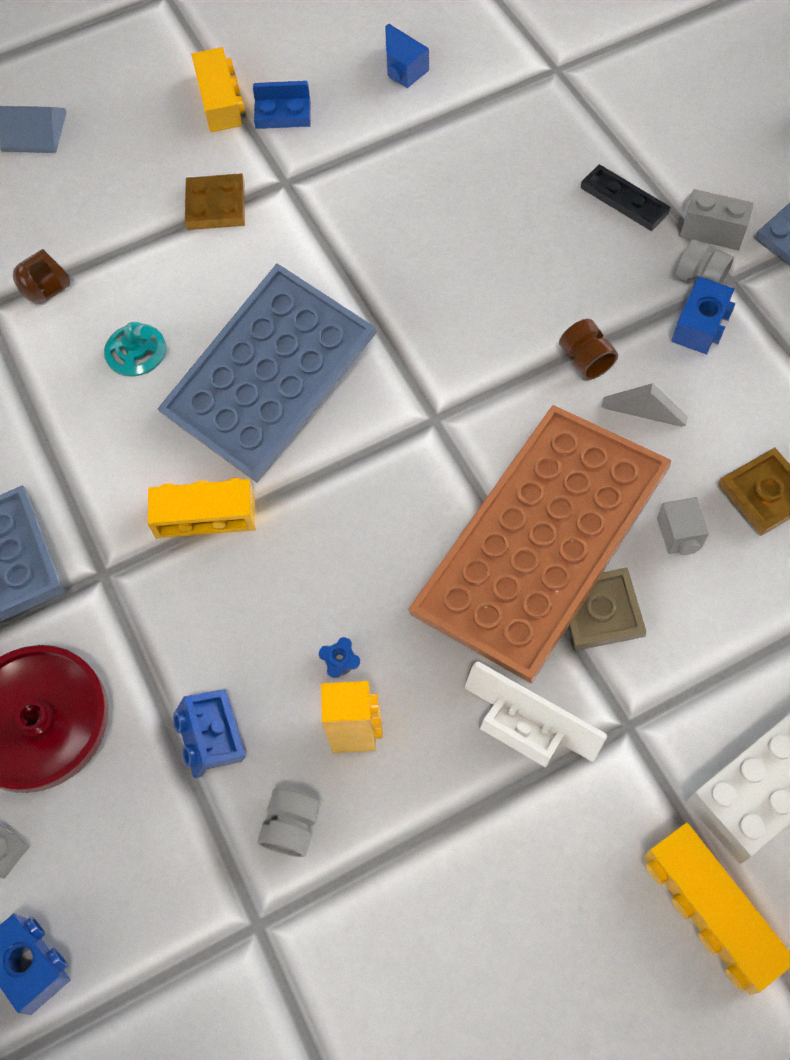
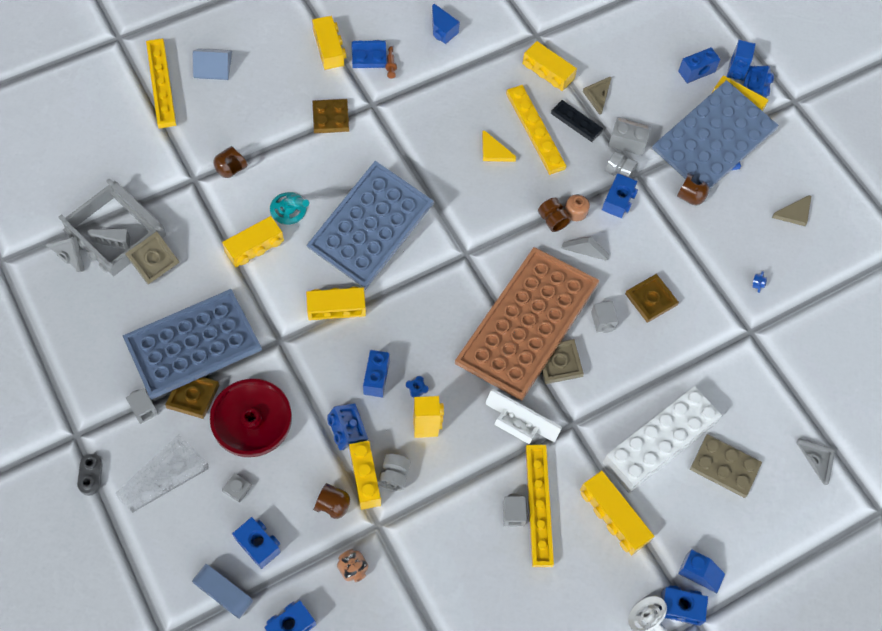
camera: 10 degrees left, 0 degrees up
(68, 404) = (253, 241): none -> yellow brick
(169, 882) = (332, 501): none -> reddish brown helmet
(201, 1013) = (352, 565): none -> nougat head
(233, 829) = (365, 475): none -> yellow brick
(265, 633) = (376, 373): none -> blue brick
(316, 121) = (390, 66): none -> dark orange piece
(485, 248) = (495, 150): none -> yellow tile
(517, 900) = (514, 510): none -> light grey brick
(556, 214) = (536, 129): none -> yellow plate
(565, 896) = (539, 506): none -> yellow plate
(577, 112) = (549, 66): none -> yellow brick
(629, 335) = (577, 207): none -> nougat head
(659, 153) = (597, 93): none -> dark tan tile

